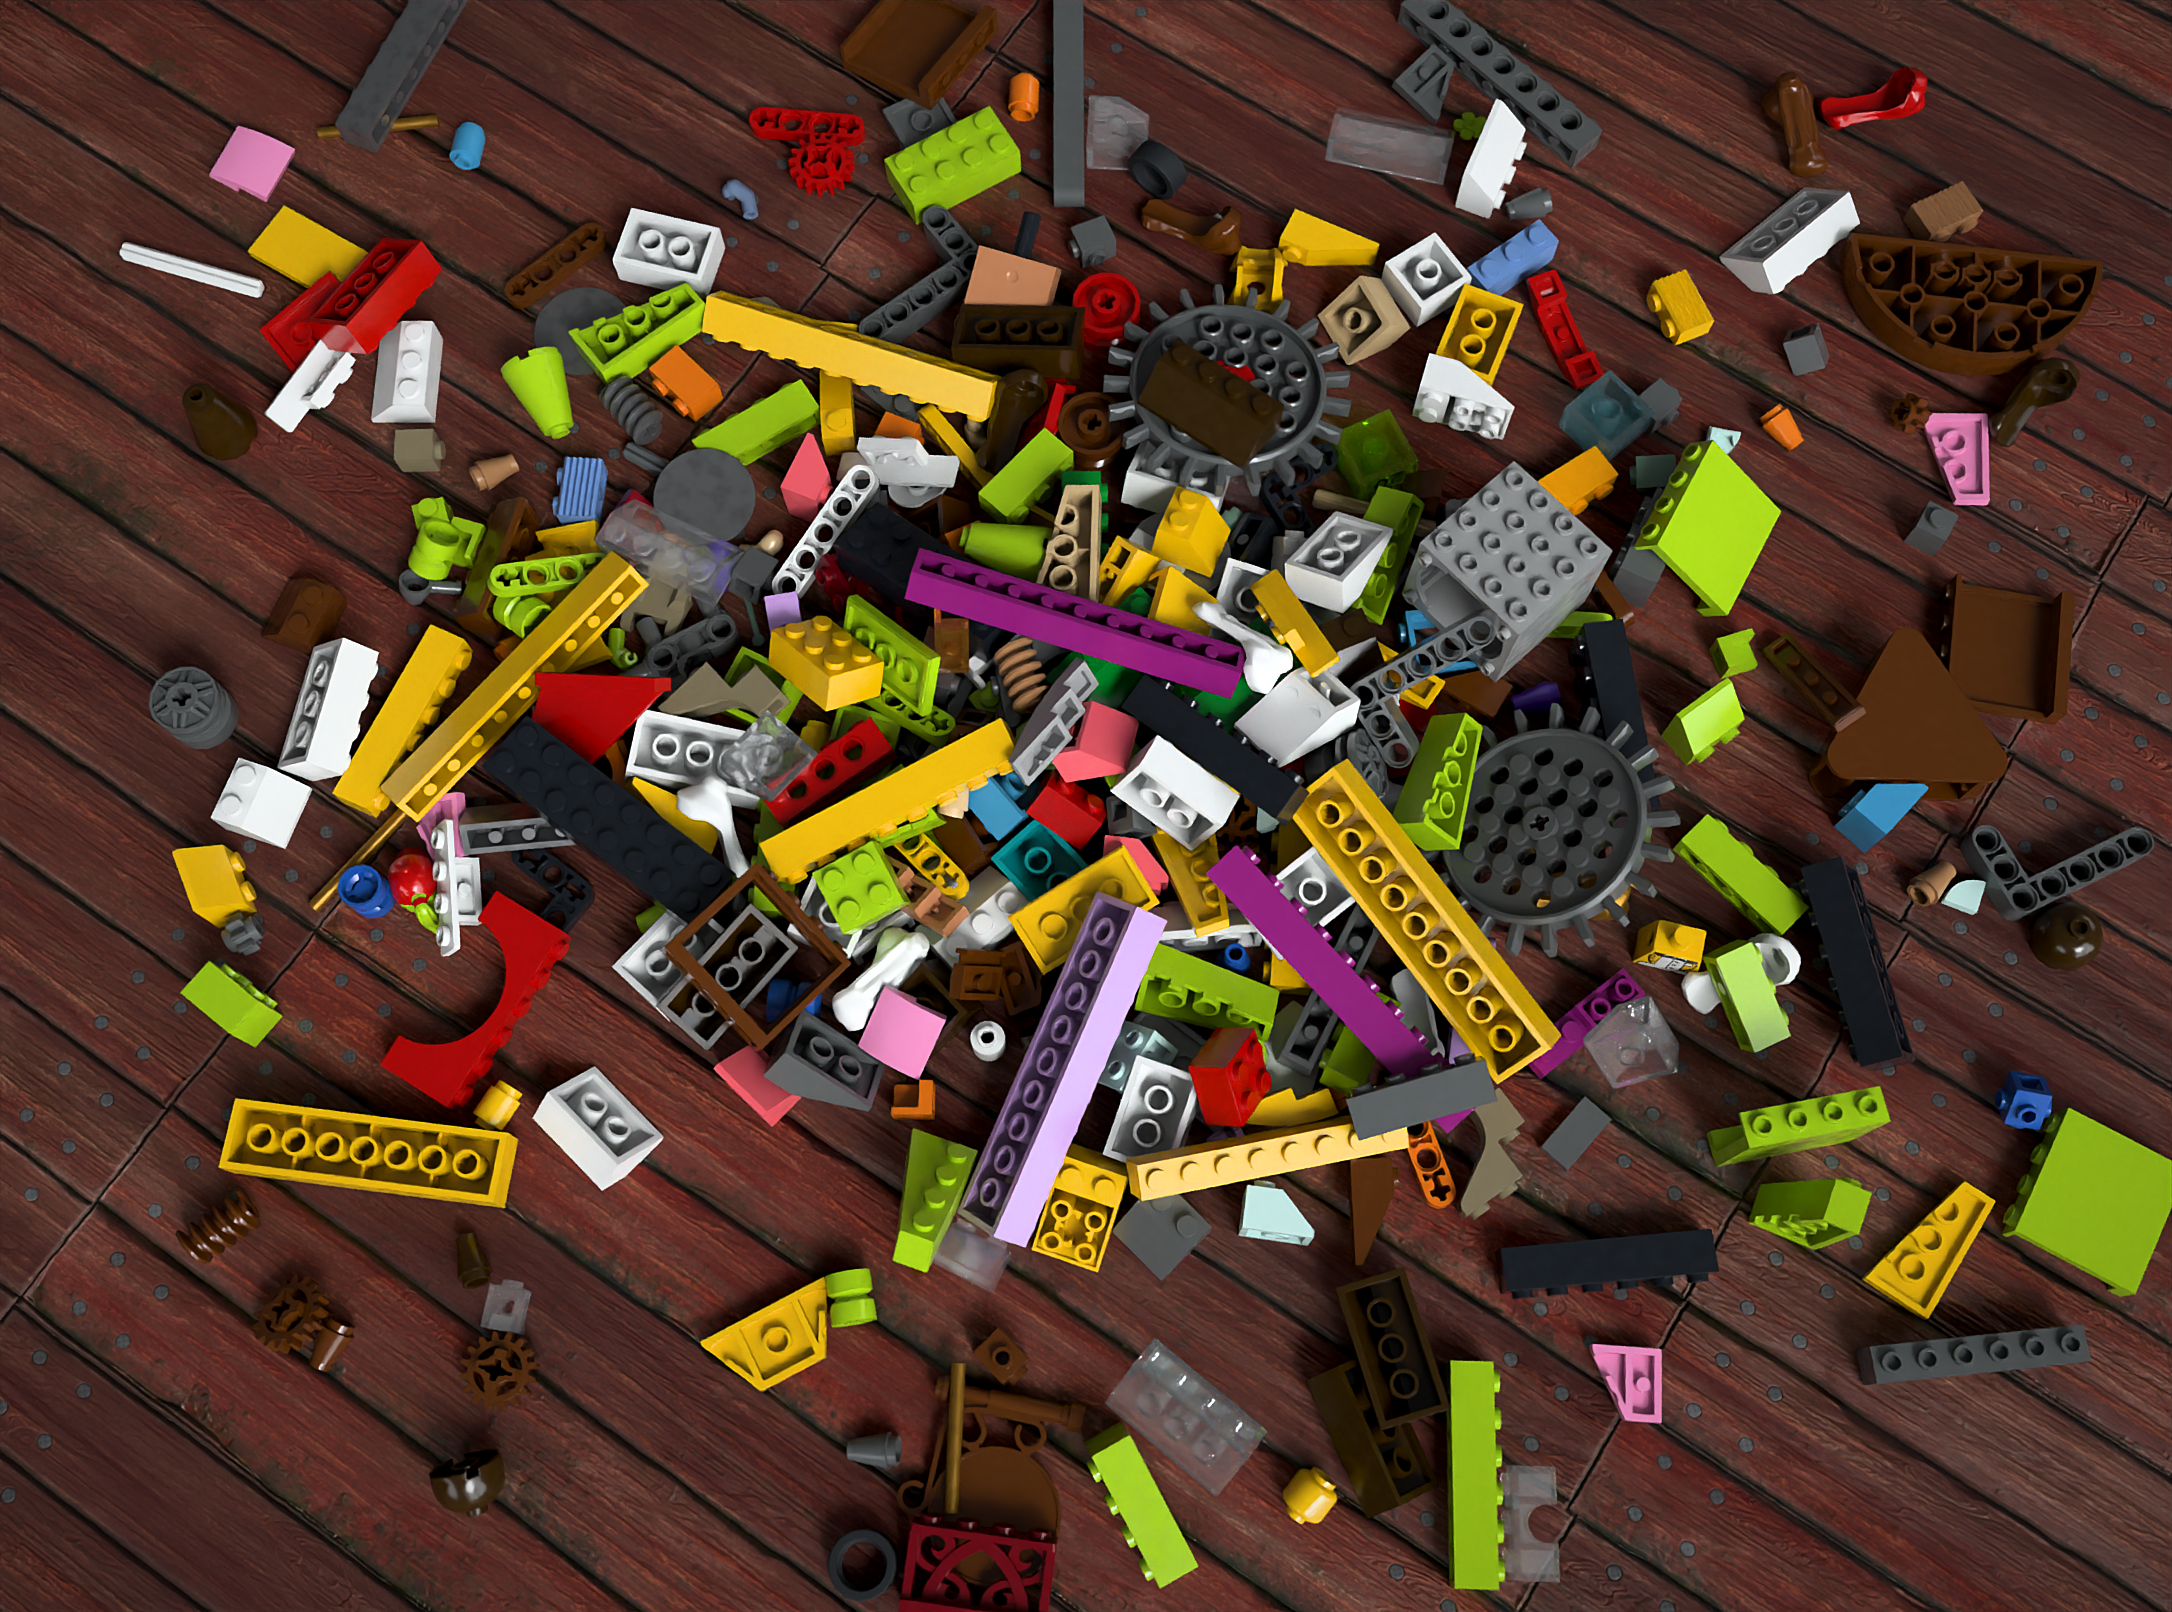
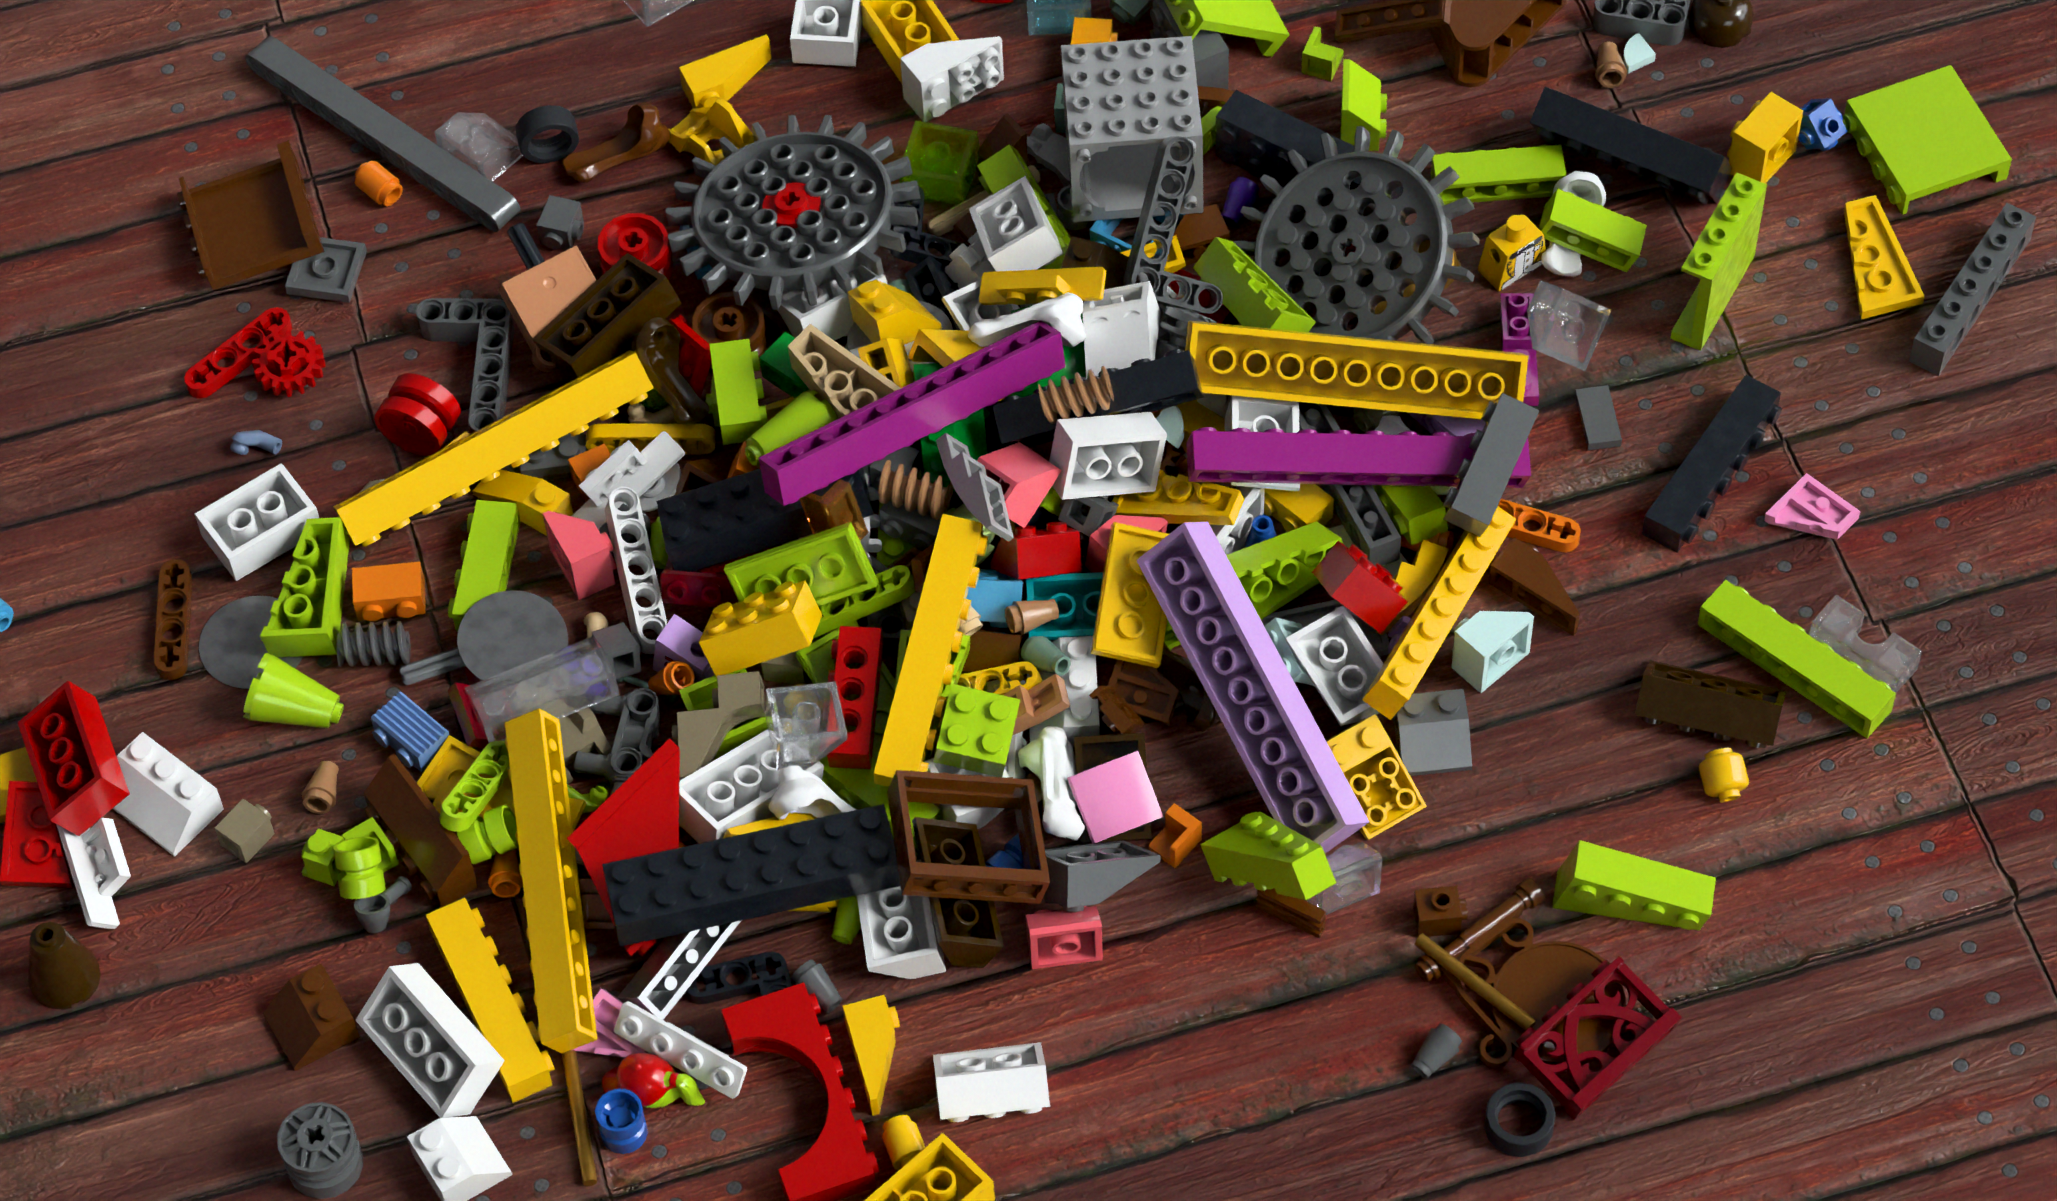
camera: 50 degrees left, 15 degrees down
(564, 1017) = (873, 1043): none -> yellow slope
(585, 939) = (818, 982): none -> dark grey cone
(754, 640) = (671, 679): none -> orange cone
(776, 1338) = (1284, 1064): yellow wing -> none
(839, 281) = (417, 414): none -> red wheel
(850, 1296) = (1297, 983): lime wheel -> none
(953, 164) = (389, 271): lime brick -> none
(981, 881) = (1045, 655): none -> sand green cone
(988, 1051) = (1175, 748): white brick -> none
(1003, 845) = (1028, 615): none -> medium nougat cone
(1186, 1417) = (1610, 810): clear slope -> none
(1188, 731) = (1076, 395): none -> medium nougat piece
(1211, 404) = (806, 217): dark brown slope -> none
(1363, 319) = (816, 90): tan slope -> none
(1392, 1348) = (1661, 633): dark brown slope -> none
(1493, 1169) = (1576, 482): dark tan arch -> none
(1811, 1210) = (1788, 296): lime wedge -> none
(1874, 813) = (1528, 54): dark azure slope -> none
(1964, 1068) = (1765, 138): none -> yellow brick

